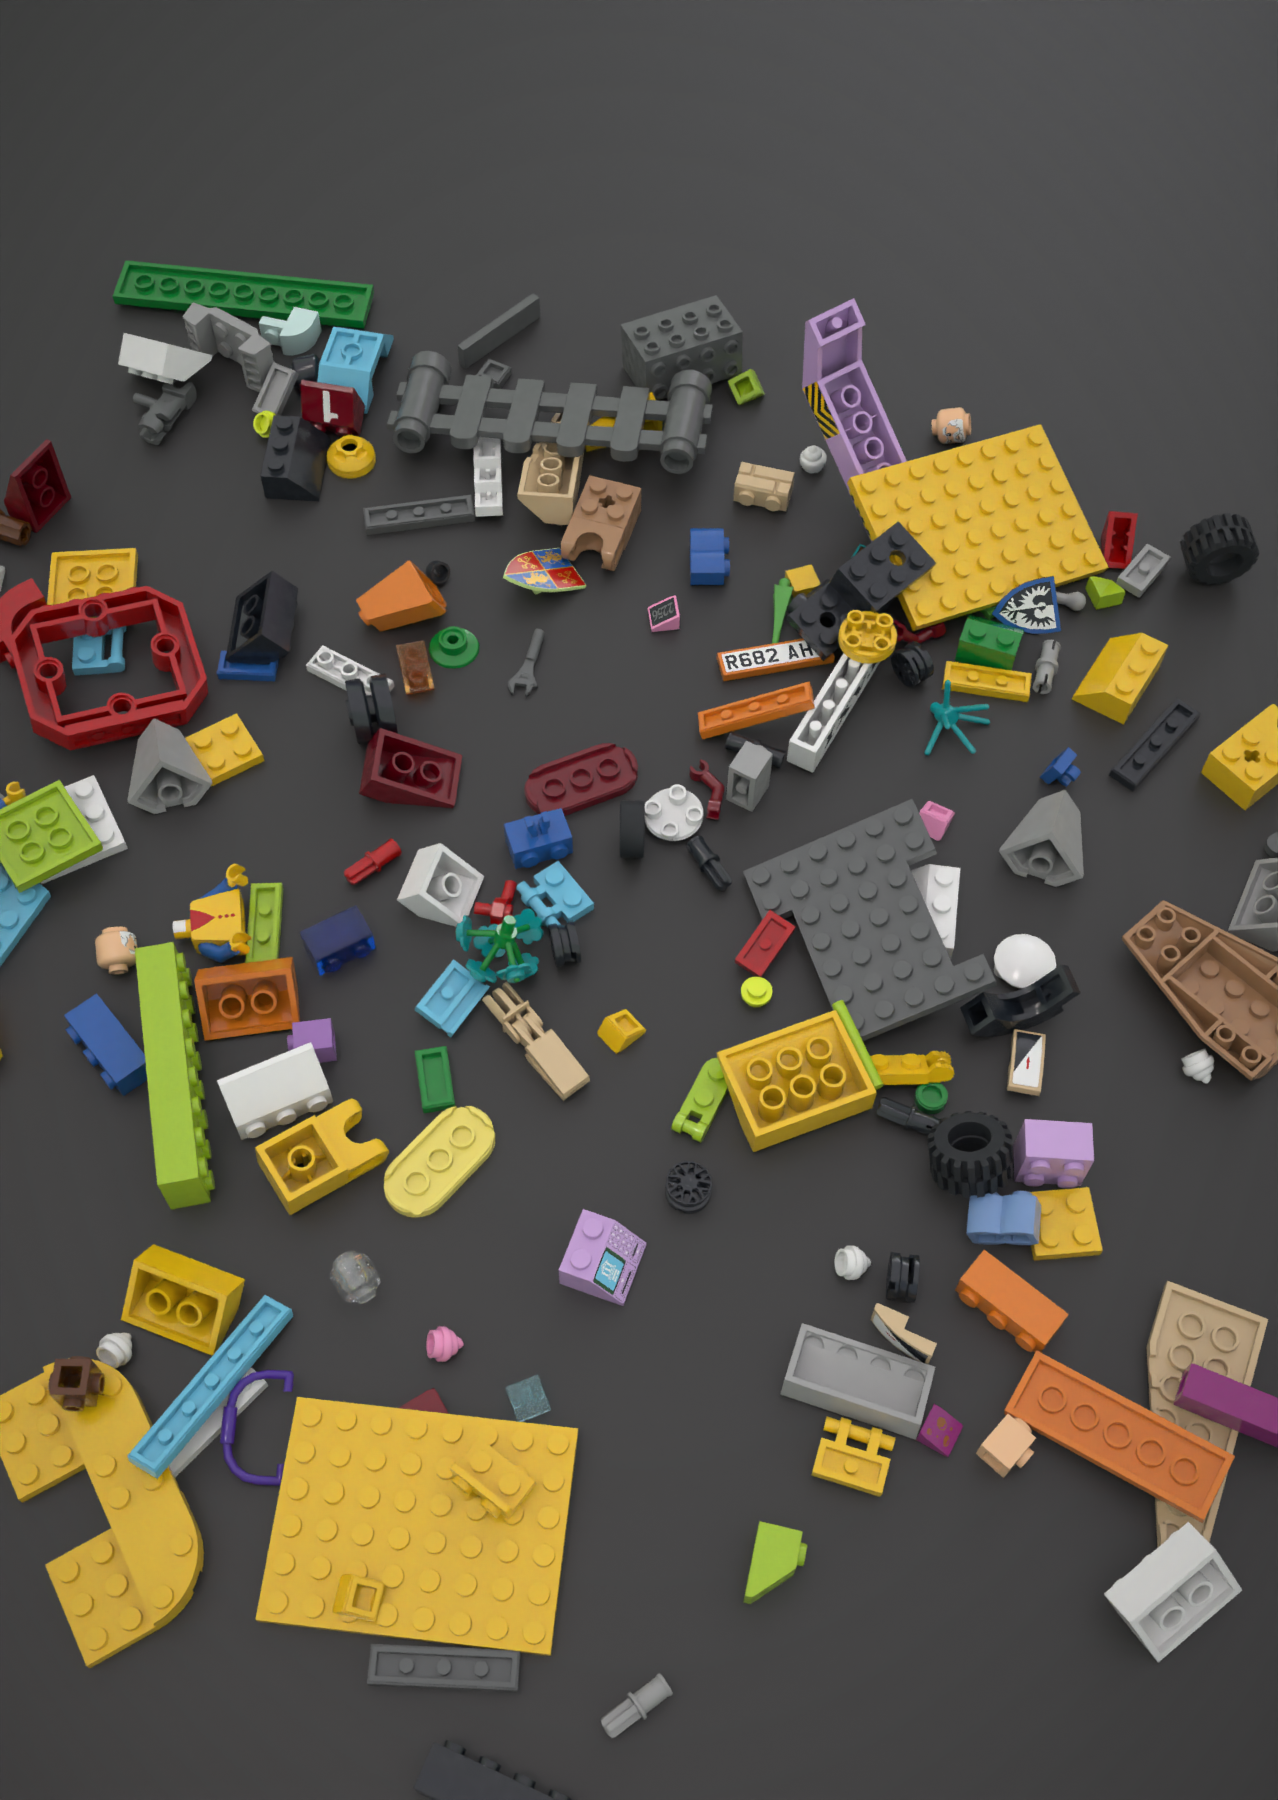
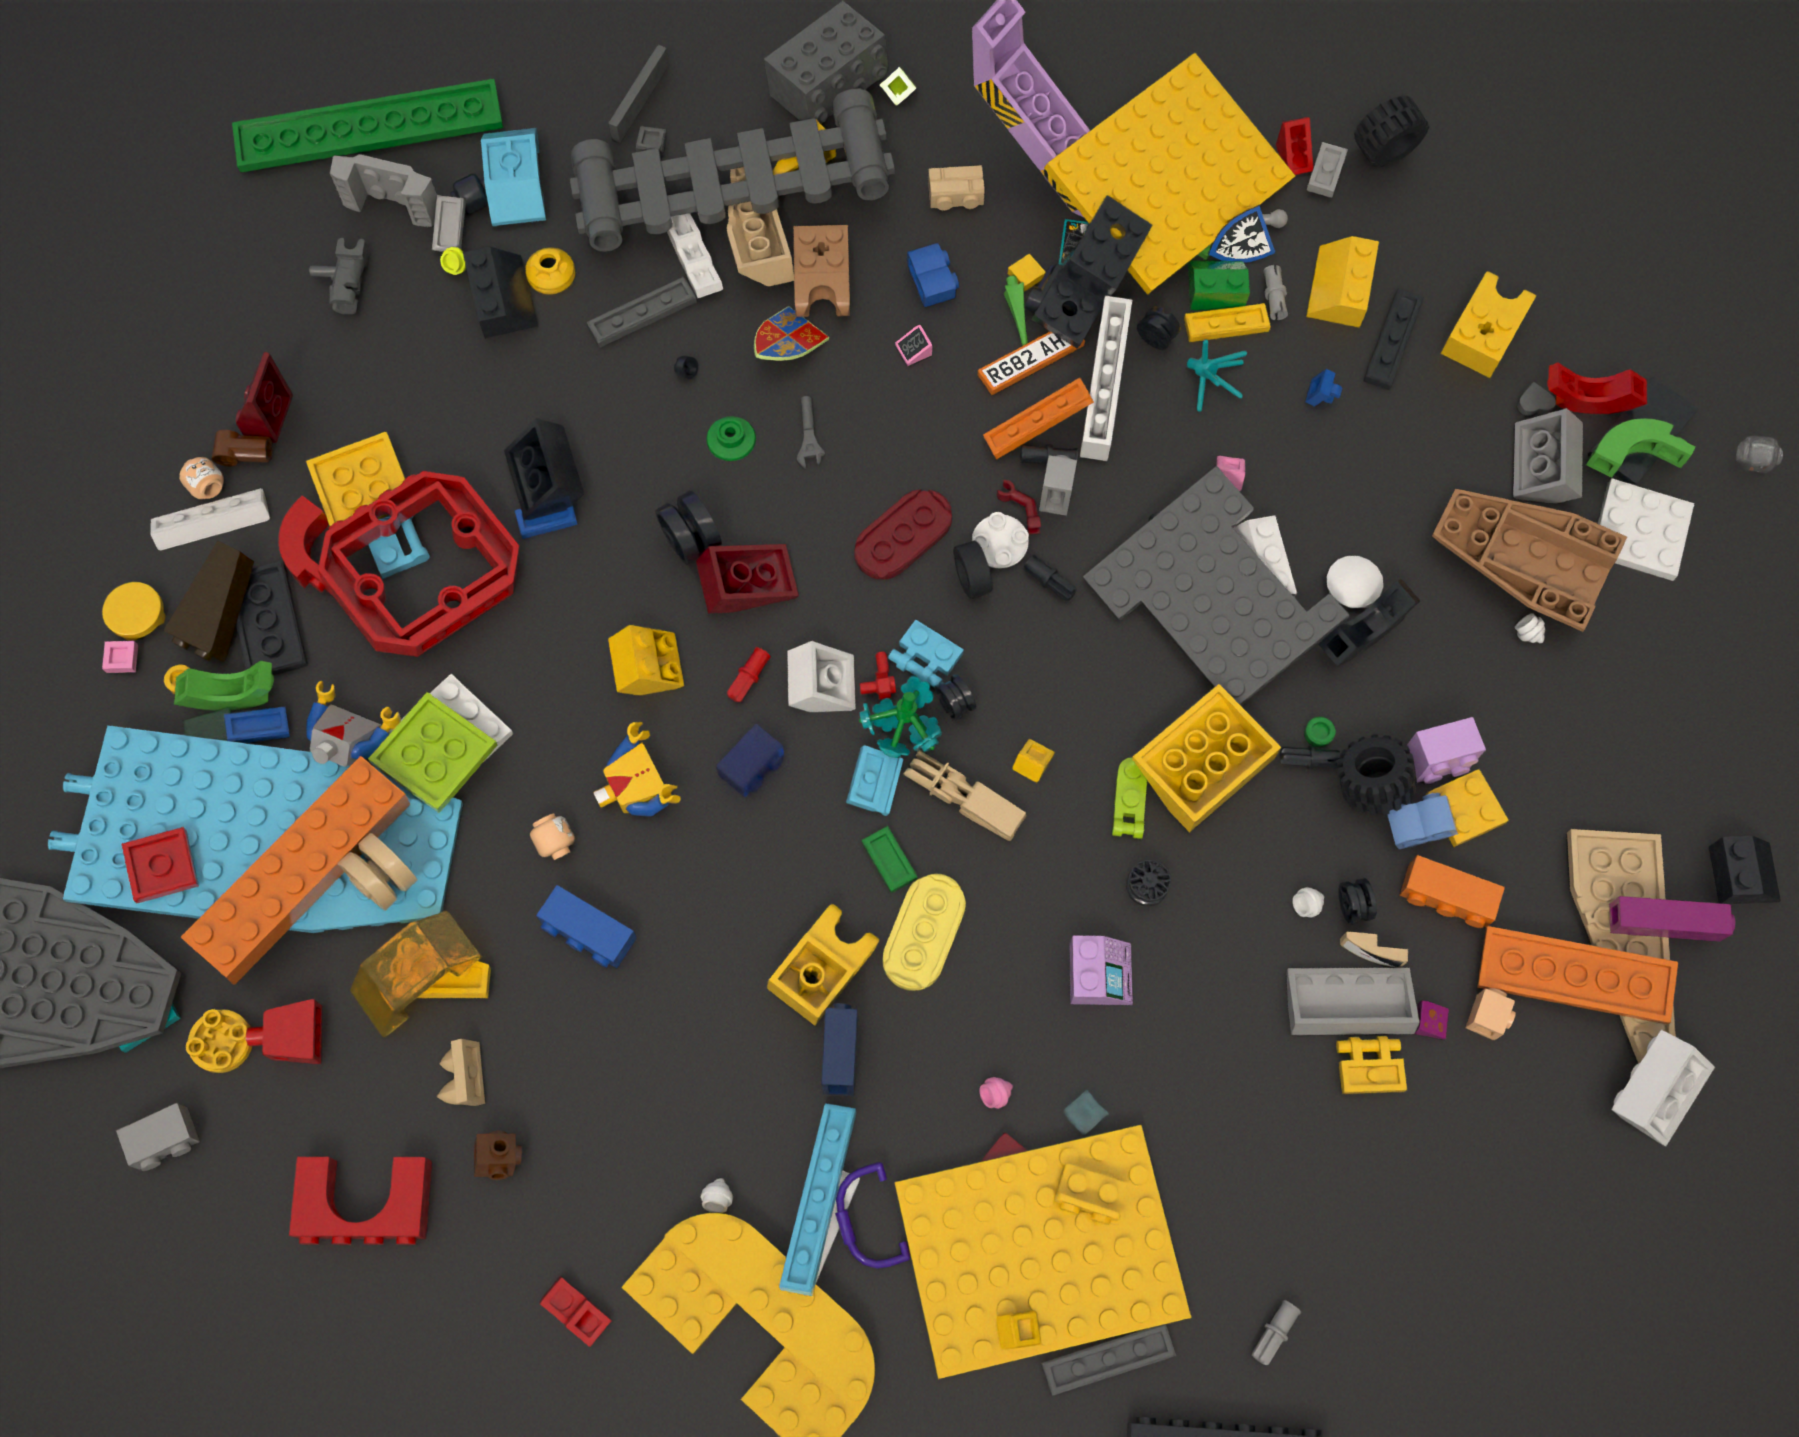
camera: 20 degrees left, 10 degrees up
(68, 1376) = (696, 1235): reddish brown brick -> none
(159, 359) = (322, 223): white slope -> none
(166, 771) = (519, 648): light grey slope -> none
(173, 1076) = (662, 939): lime brick -> none
(181, 1299) = (756, 1132): yellow slope -> none
(225, 749) = (561, 608): yellow plate -> none
(247, 998) = (693, 841): orange slope -> none
(264, 921) = (675, 766): lime tile -> none
(276, 1091) = (760, 921): white slope -> none
(279, 818) = (645, 660): none -> yellow slope
(295, 334) = (439, 156): light aqua brick -> none
(297, 1244) = (839, 1050): none -> dark blue brick
(319, 1033) = (769, 862): medium lavender brick -> none
(332, 407) = (516, 228): dark red slope -> none
(338, 669) = (630, 494): white tile -> none
(355, 1277) = (898, 1061): clear head -> none
(401, 599) = (668, 408): orange slope -> none
(415, 667) = (705, 471): clear orange slope -> none
(538, 838) = (890, 604): blue brick -> none
(756, 991) = (1137, 685): neon yellow plate -> none
(765, 944) = (1129, 640): red plate -> none
(773, 1559) = (1339, 1175): lime slope -> none
(813, 459) = (989, 143): white plate -> none
(858, 1043) = (1244, 703): lime bar -> none
(867, 636) = (1115, 316): yellow tile -> none
(914, 1068) = (1294, 713): yellow hinge -> none
(931, 631) = (1150, 299): dark red arm -> none
(952, 425) = (1105, 71): light nougat head -> none
(1026, 1062) = (1389, 673): slope -> none
(1048, 842) = (1337, 463): light grey slope -> none
(1104, 592) = (1300, 202): lime slope -> none

